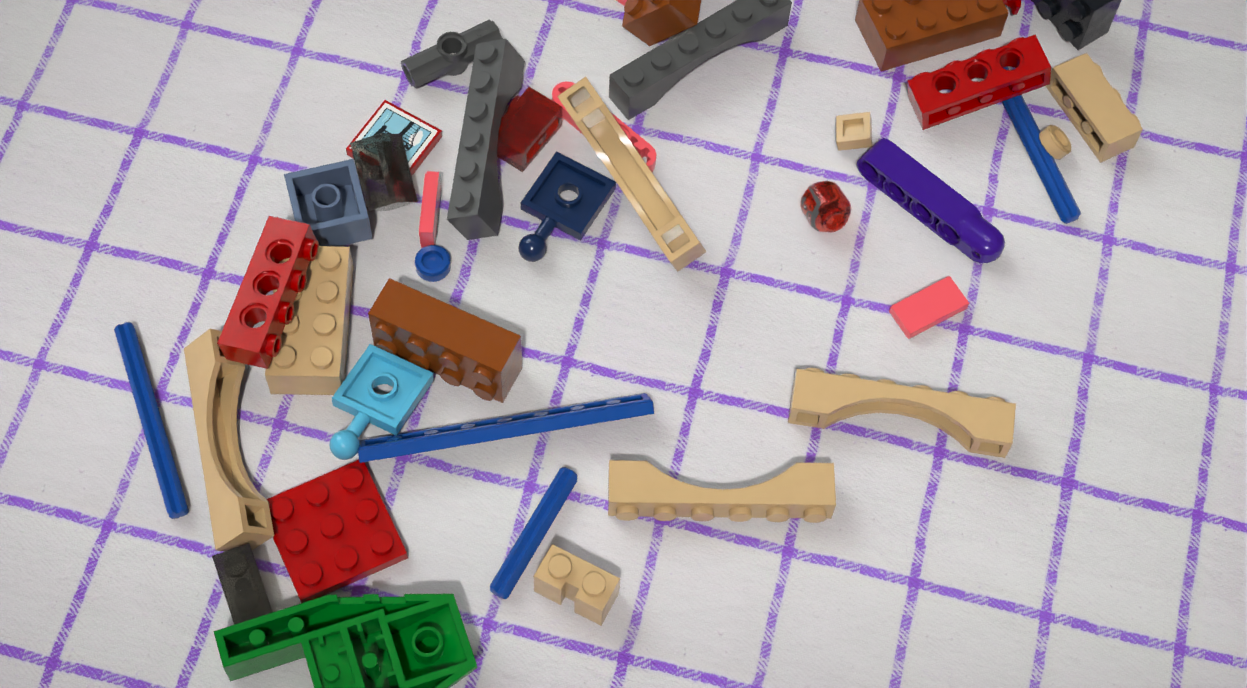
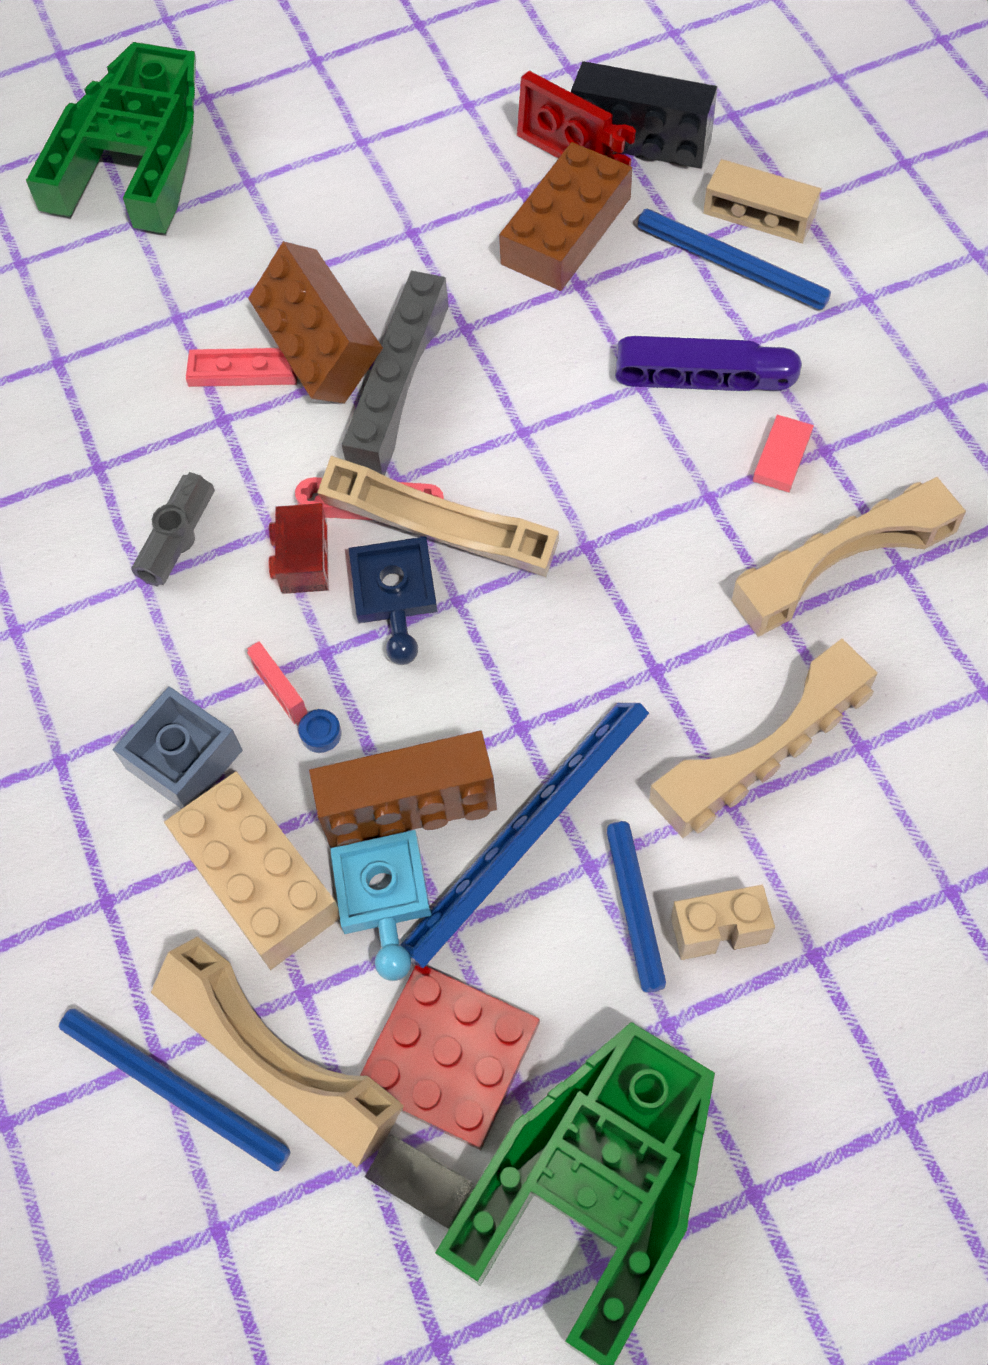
camera: 30 degrees left, 0 degrees up
(264, 273) = (168, 814): red brick -> none
(383, 172) = (207, 677): clear smoke brick -> none
(417, 135) = (186, 648): tile -> none
(475, 191) = (303, 628): dark grey arch -> none
(825, 206) = (625, 429): clear red head -> none
(854, 131) = (589, 351): tan plate -> none
(969, 96) = (634, 287): red brick -> none
(1055, 142) = (758, 248): tan tile -> none

